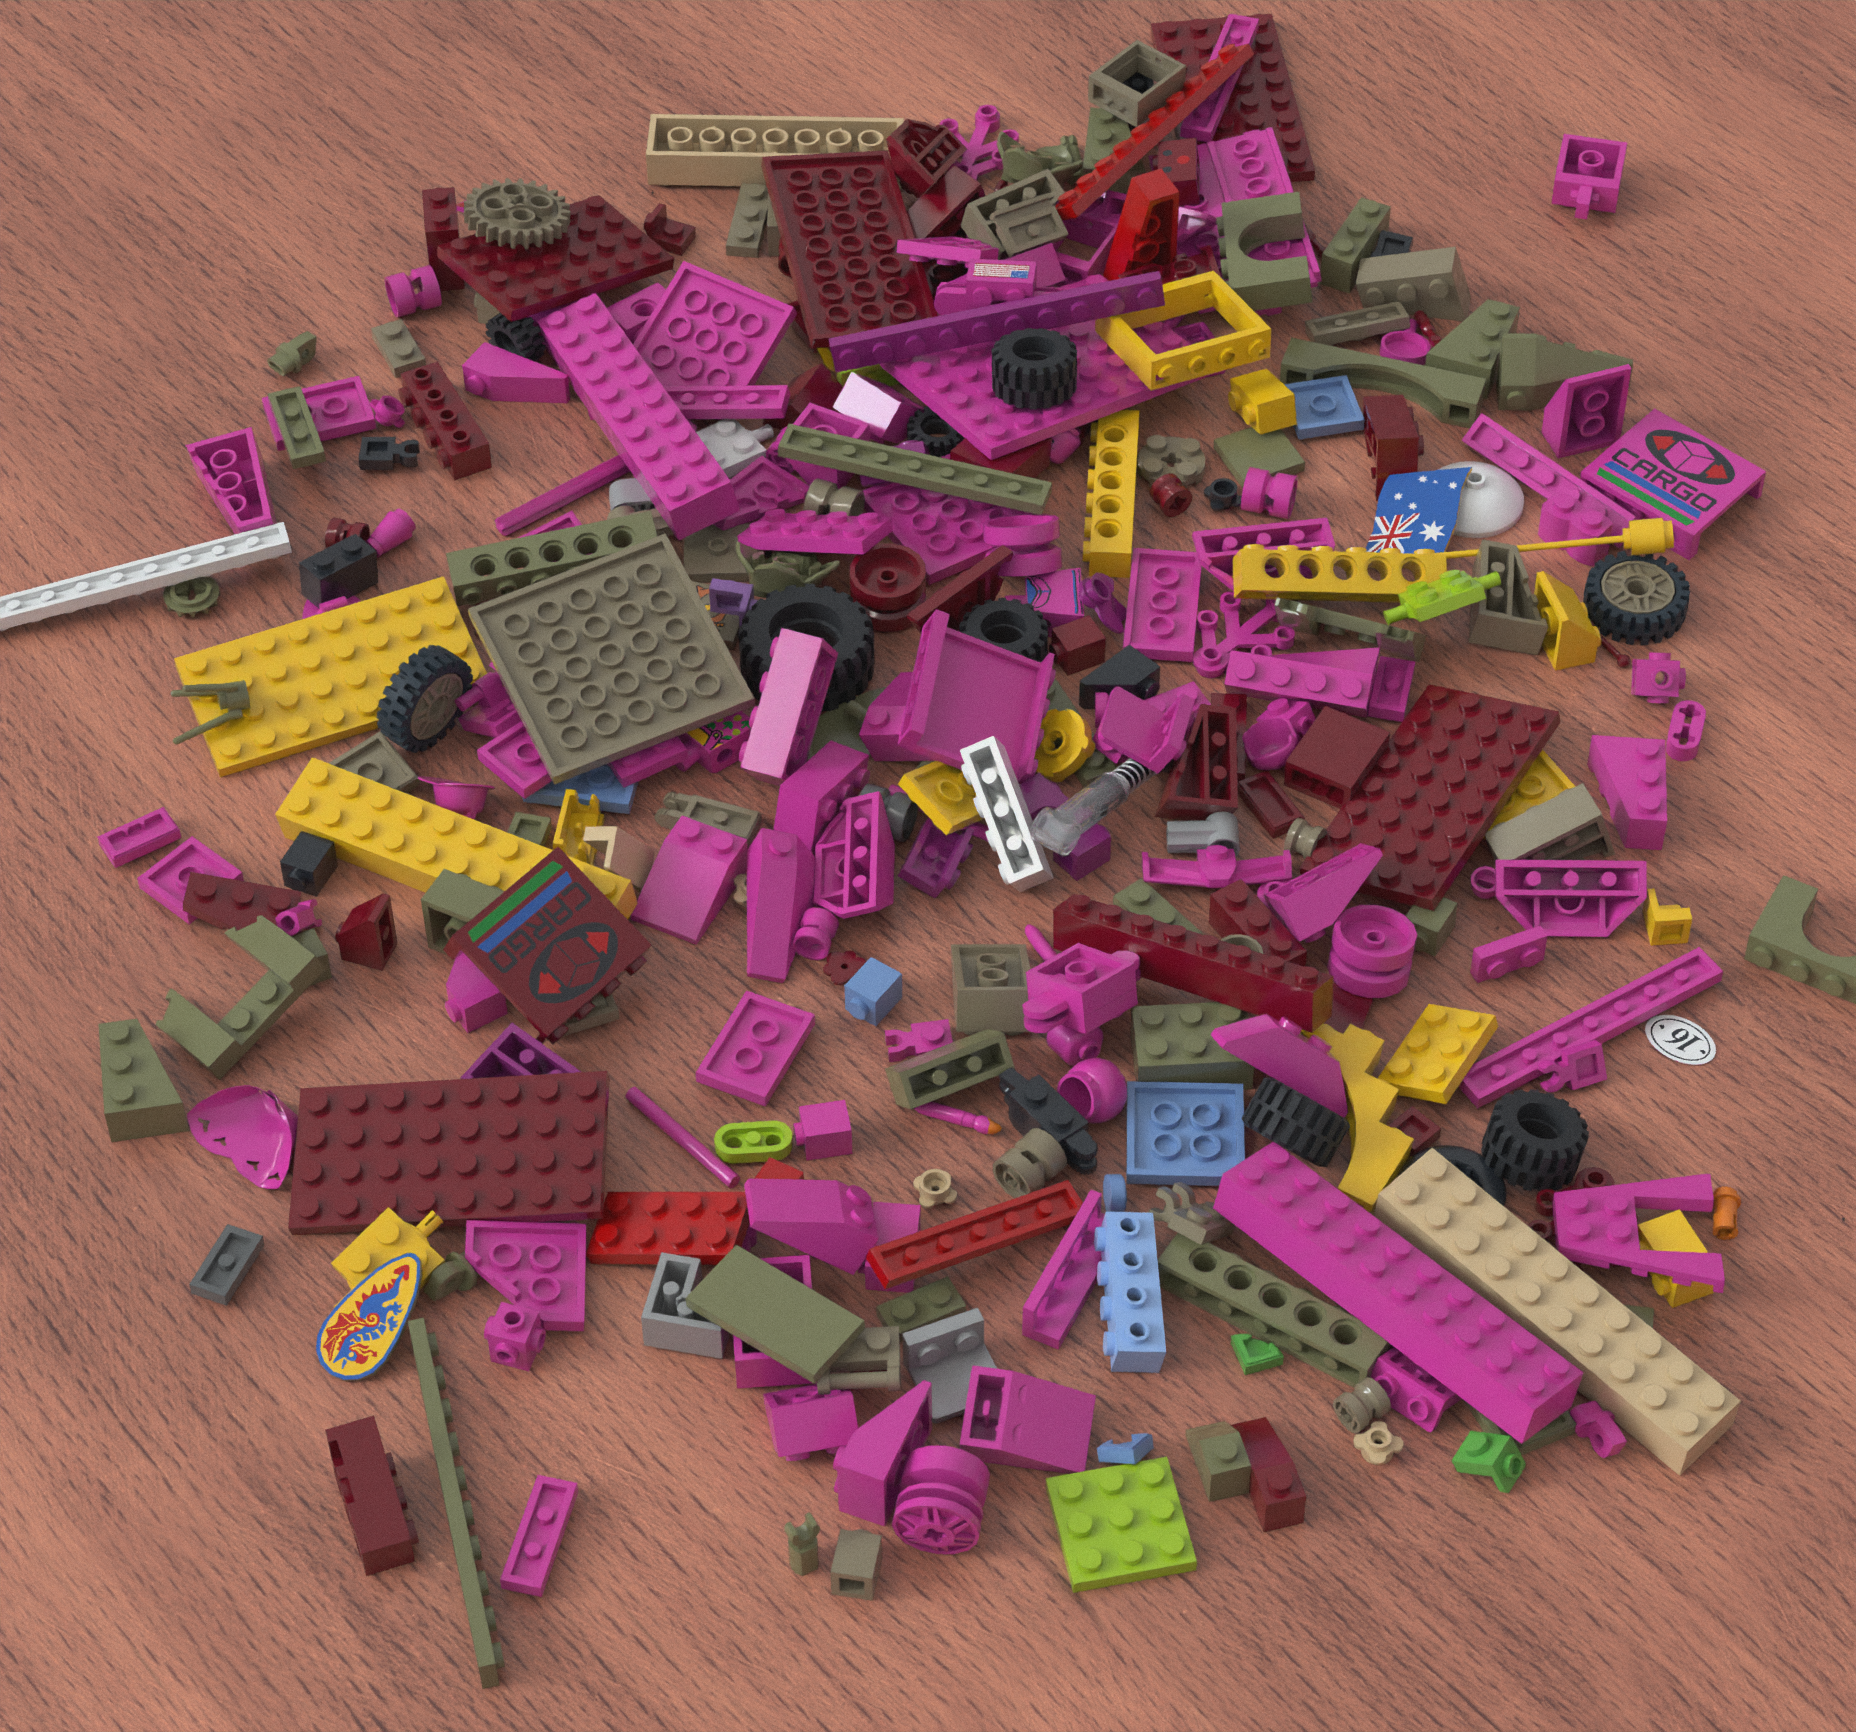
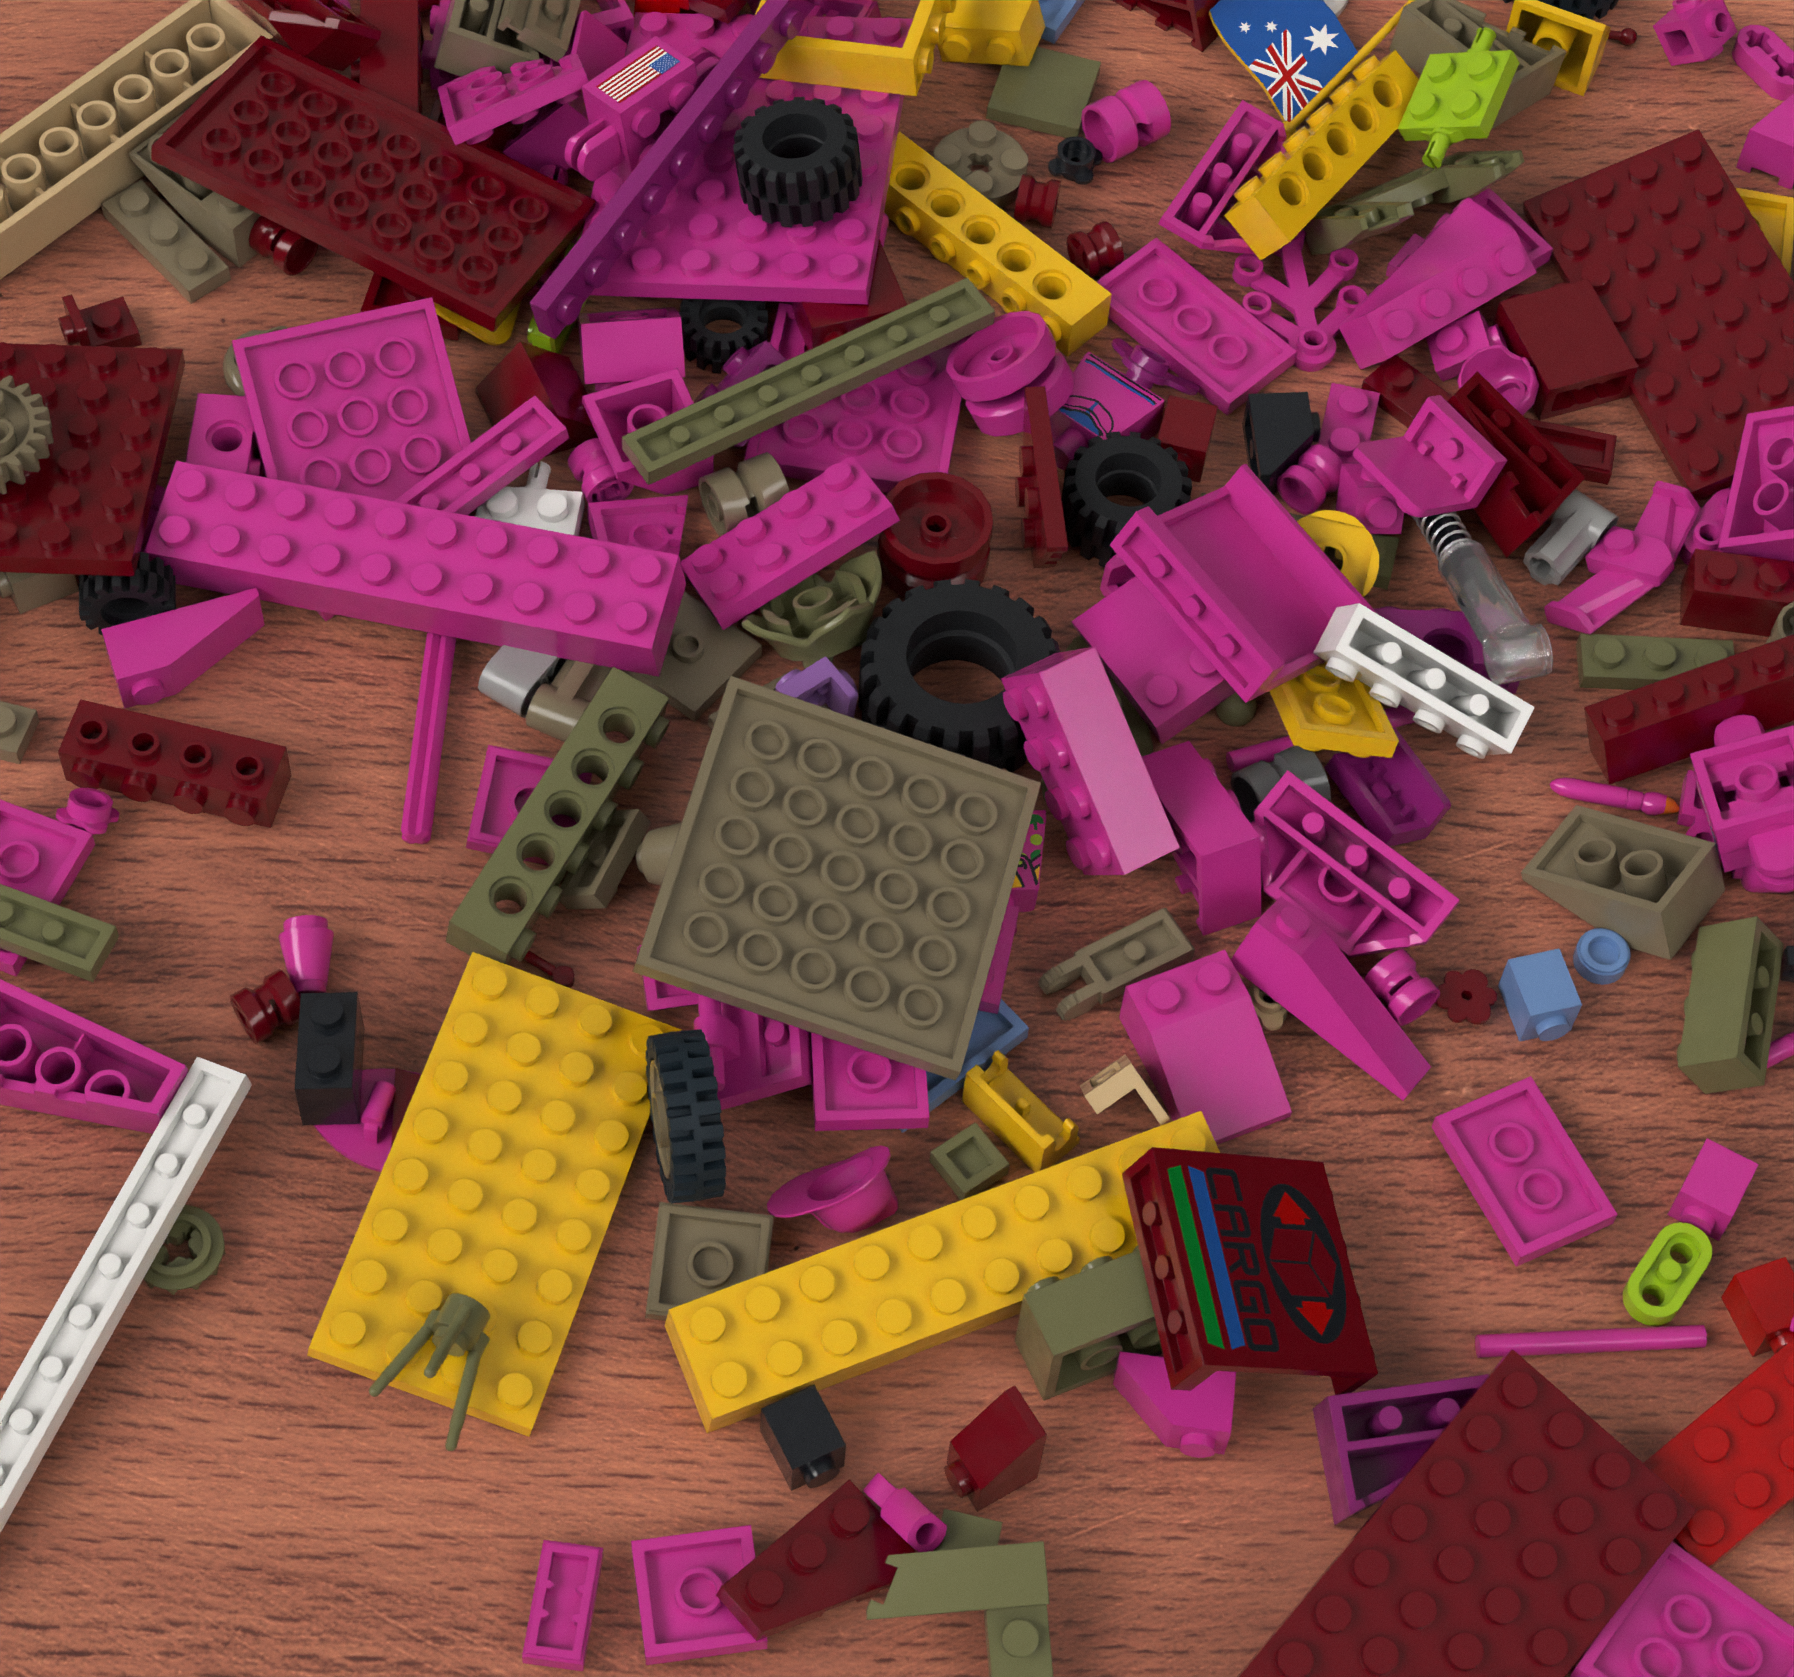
camera: 55 degrees left, 10 degrees up
(384, 452) = (157, 869): black plate -> none
(921, 1039) = (1641, 1001): dark pink plate -> none
(935, 1006) = (1601, 956): none -> medium blue tile
(1164, 535) = (1095, 249): none -> dark red wheel
(1303, 838) = (1655, 457): dark tan wheel -> none

